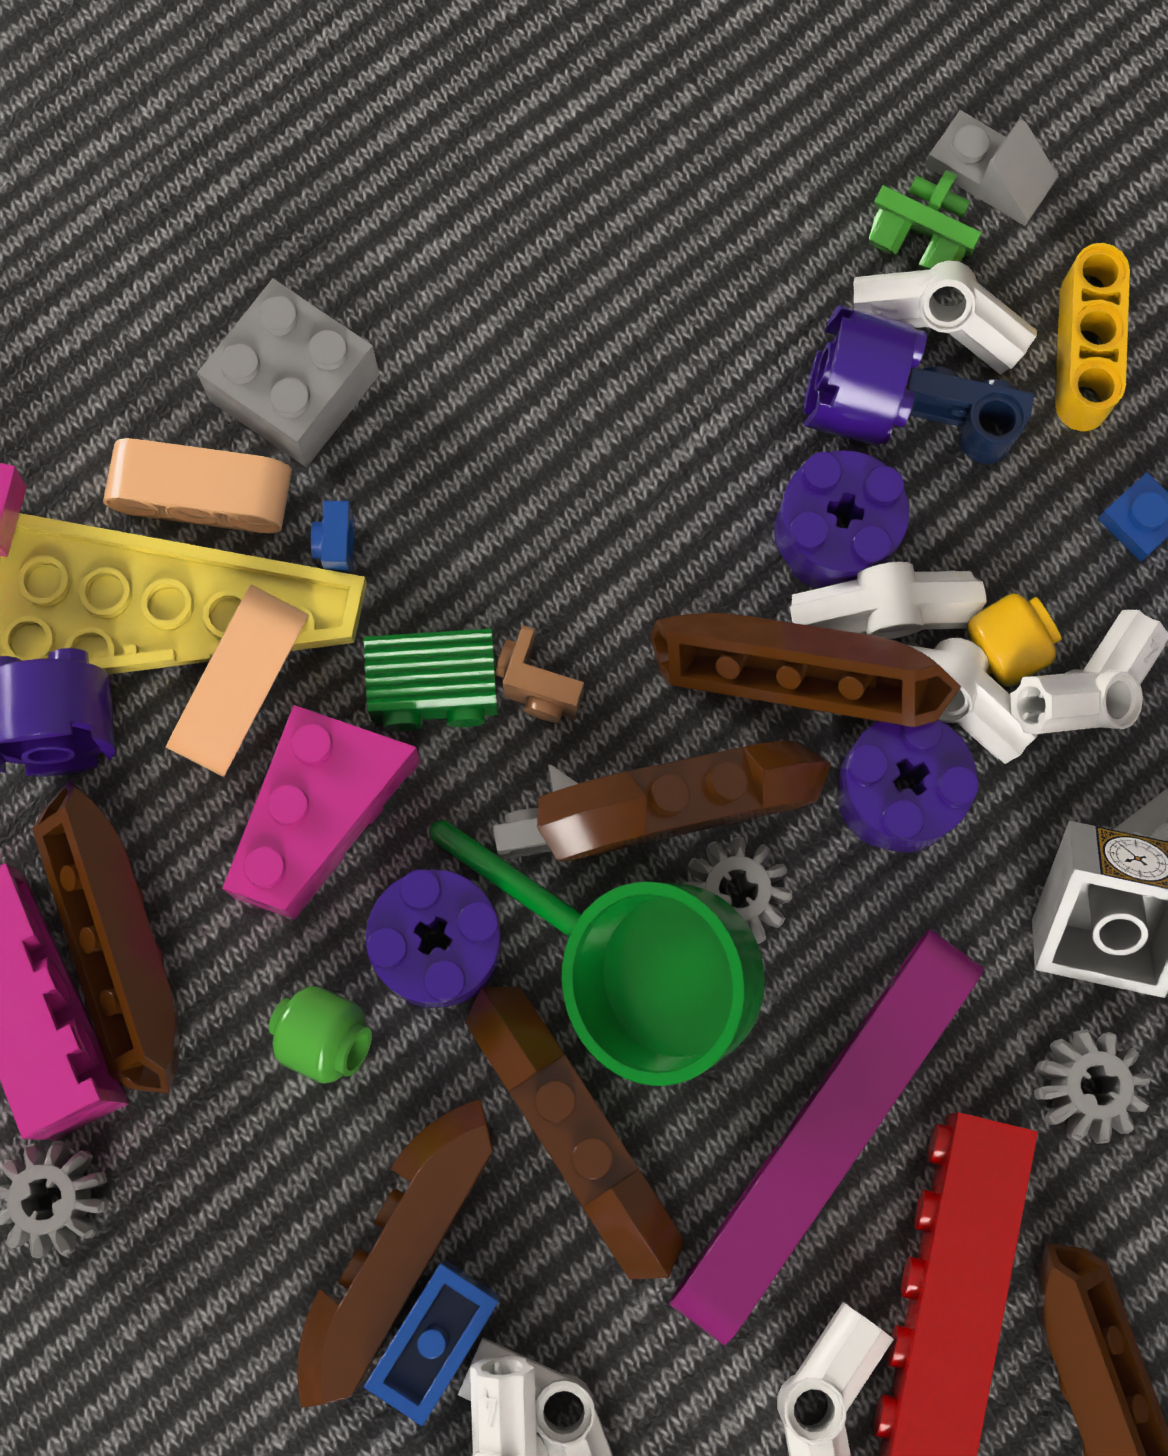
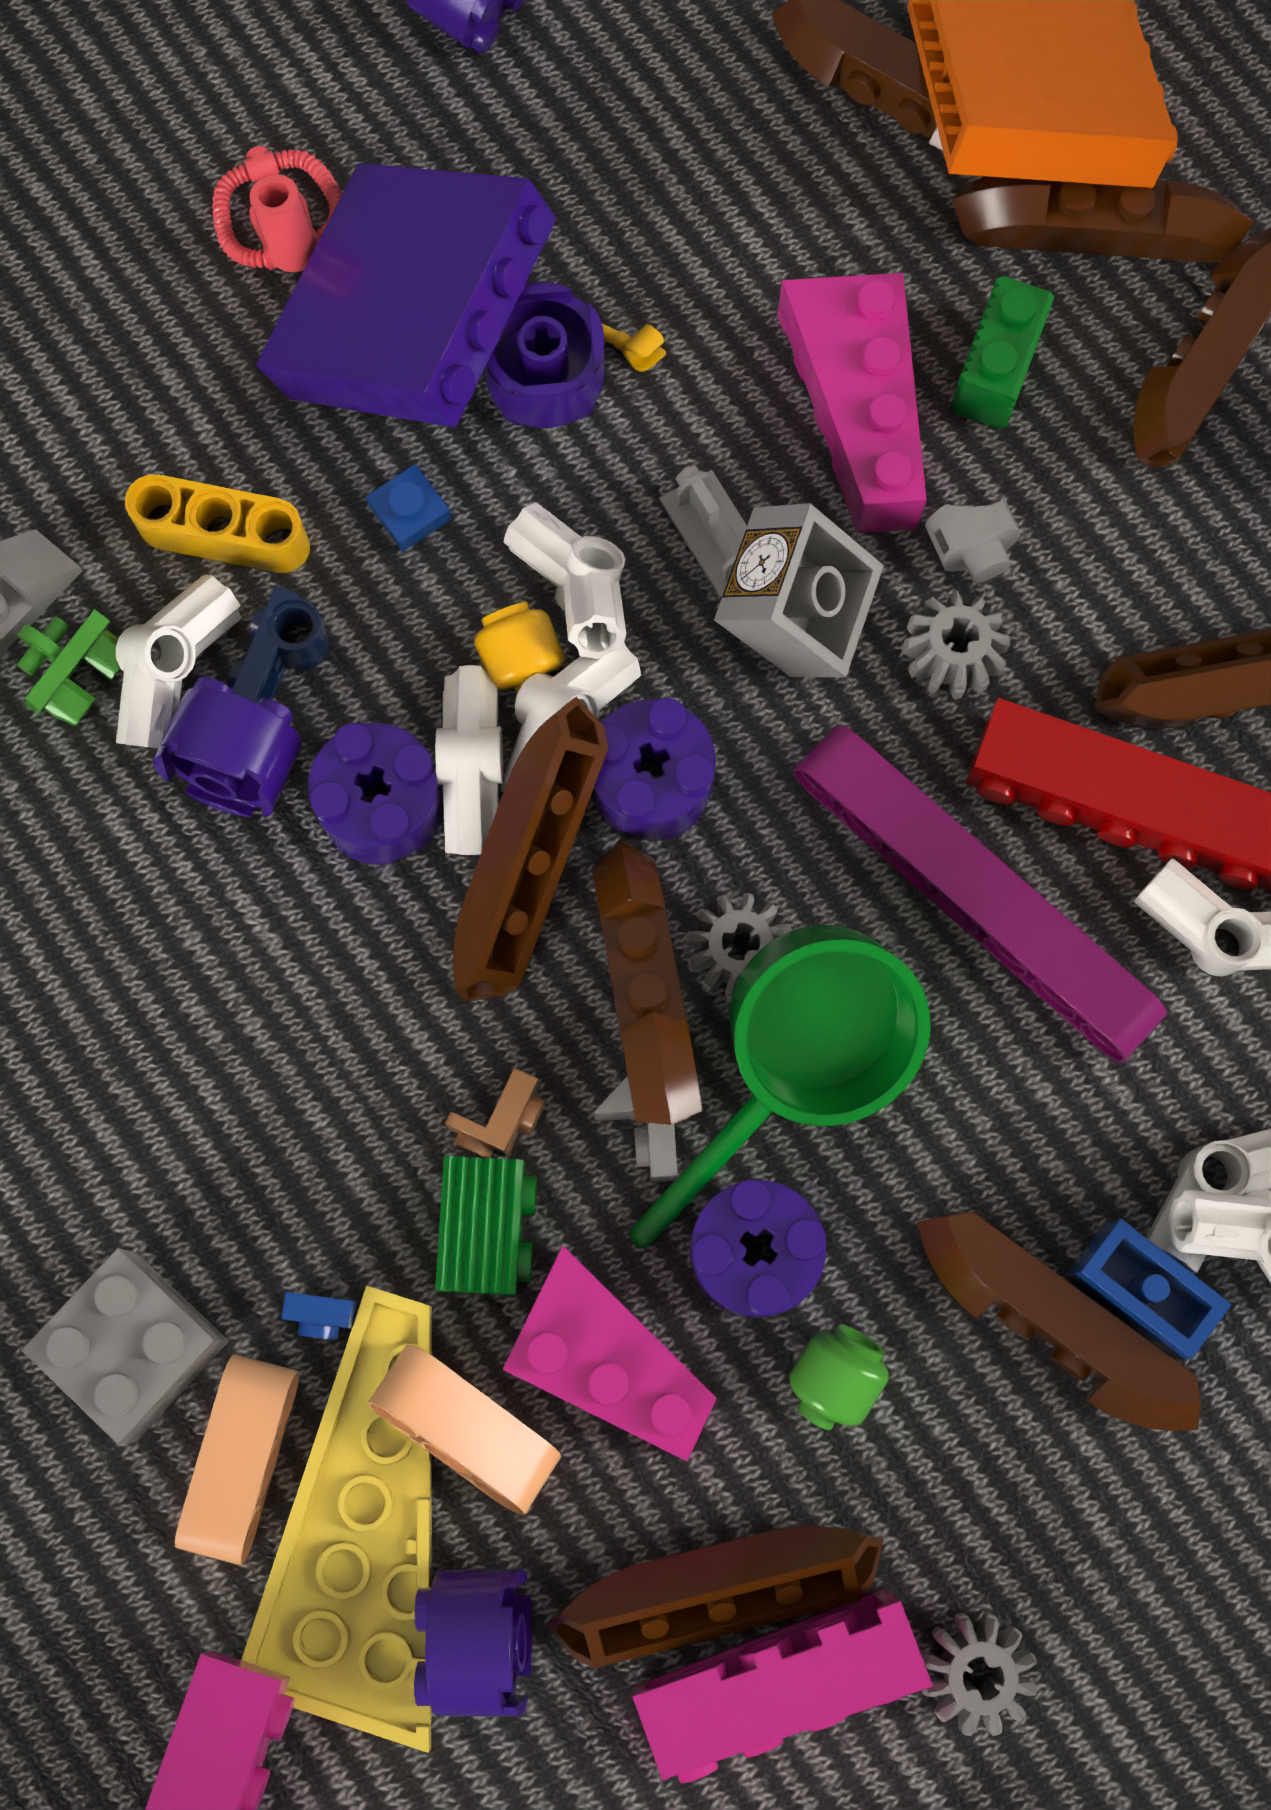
camera: 80 degrees left, 0 degrees up
(575, 1133) = (953, 1134): reddish brown brick -> none

